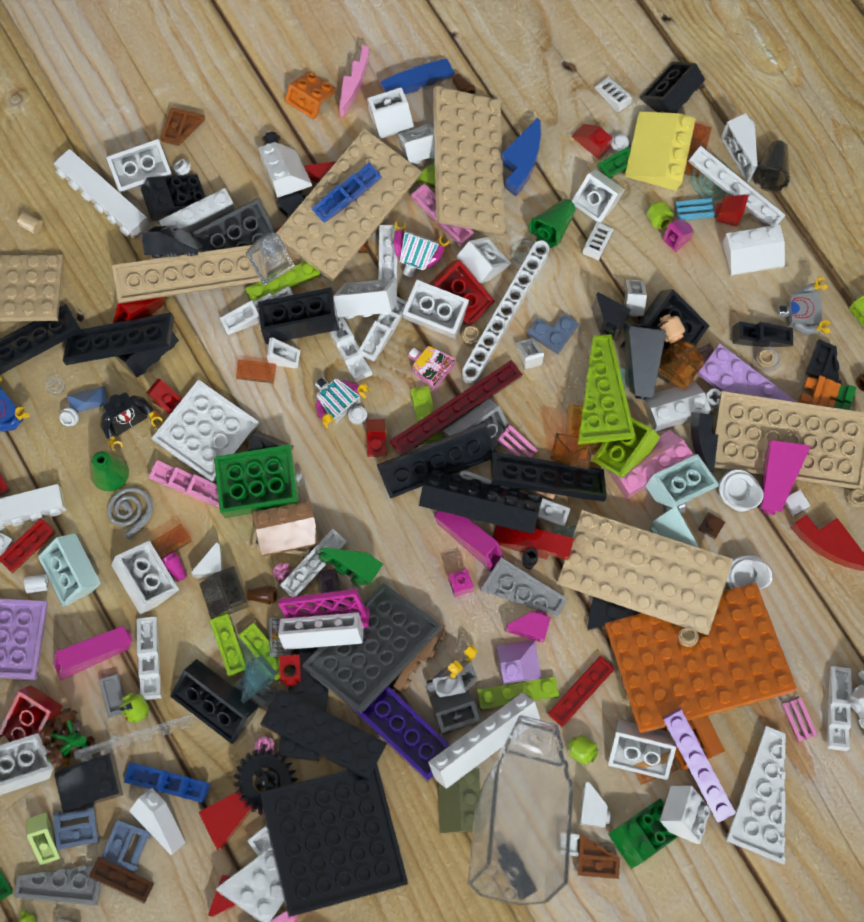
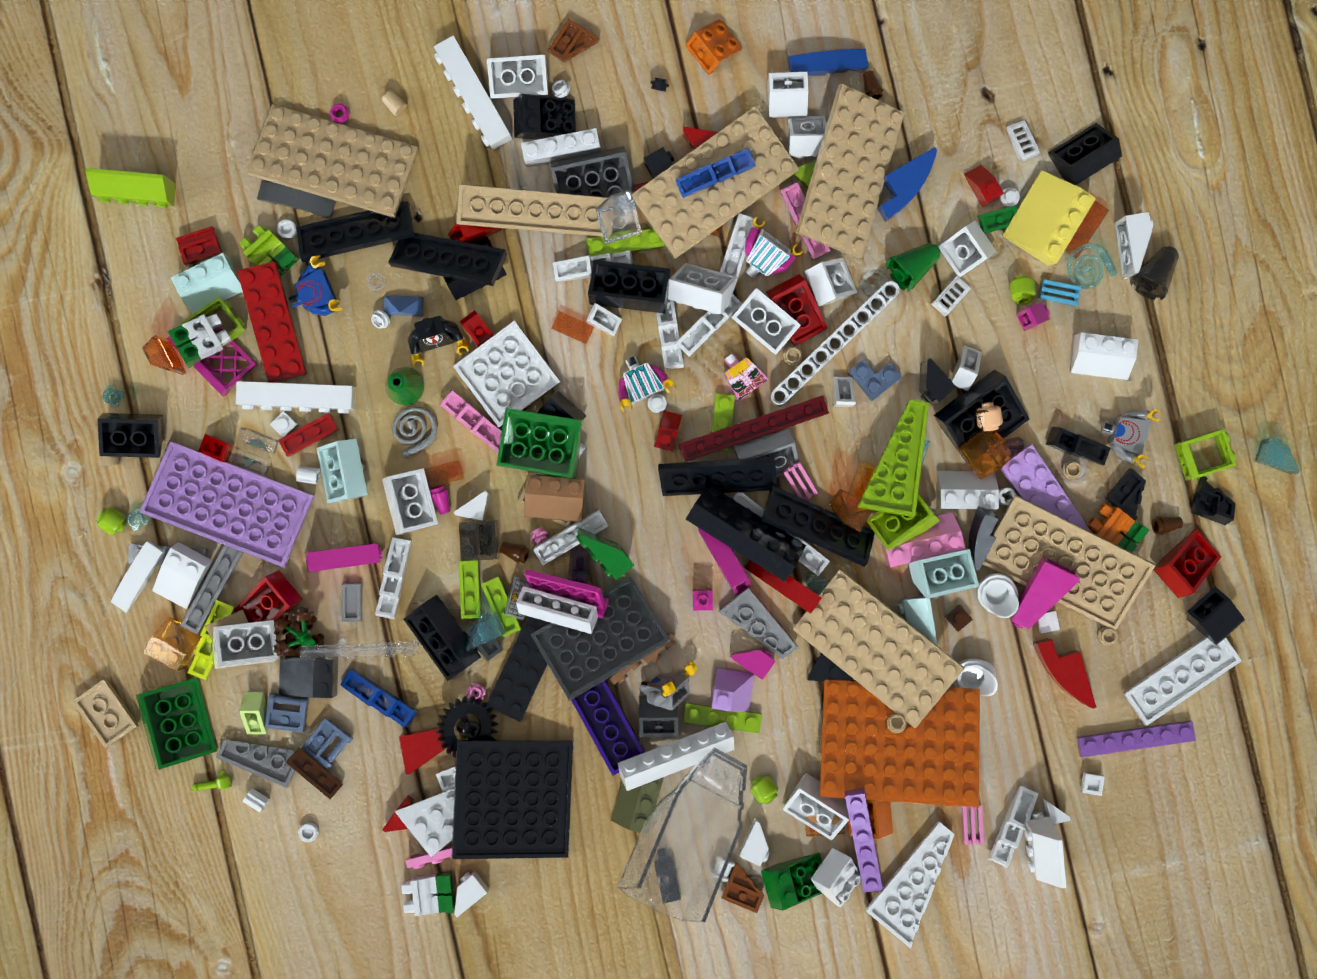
camera: 20 degrees right, 15 degrees up
(134, 707) = (367, 622): lime head -> none
(158, 820) = (361, 732): white slope -> none
(171, 241) = (527, 174): black slope -> none
(283, 168) = (662, 124): white slope -> none
(285, 662) = (525, 627): red brick -> none
(323, 734) = (532, 702): black plate -> none
(352, 85) = (759, 50): bright pink slope -> none
(530, 558) = (770, 600): black pin -> none
(580, 691) = (781, 734): red tile -> none
(643, 357) = (951, 438): black slope -> none
(731, 209) = (1096, 307): red slope -> none
(735, 186) = (1109, 285): white plate -> none

